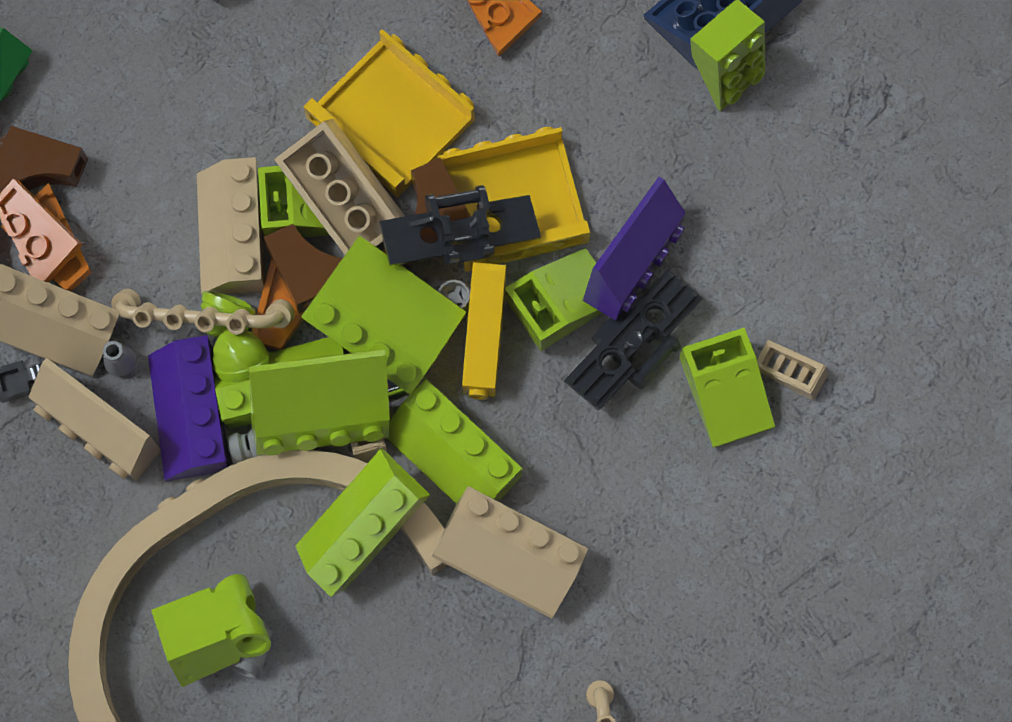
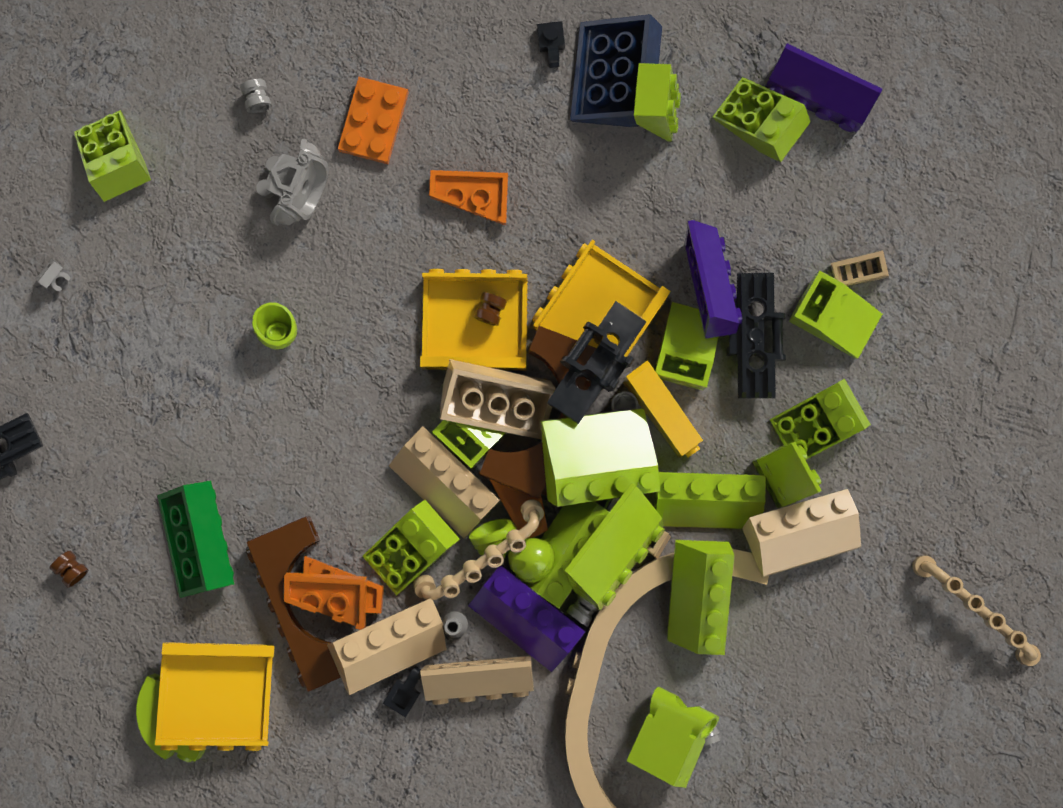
camera: 40 degrees left, 10 degrees up
(148, 257) = (410, 547): none -> lime slope
(413, 112) = (490, 309): none -> reddish brown wheel
(543, 483) = (788, 474): none -> lime slope
(624, 472) = (822, 419): none -> lime slope
(823, 158) = (763, 118): none -> lime slope
(900, 174) = (823, 88): none -> dark purple slope

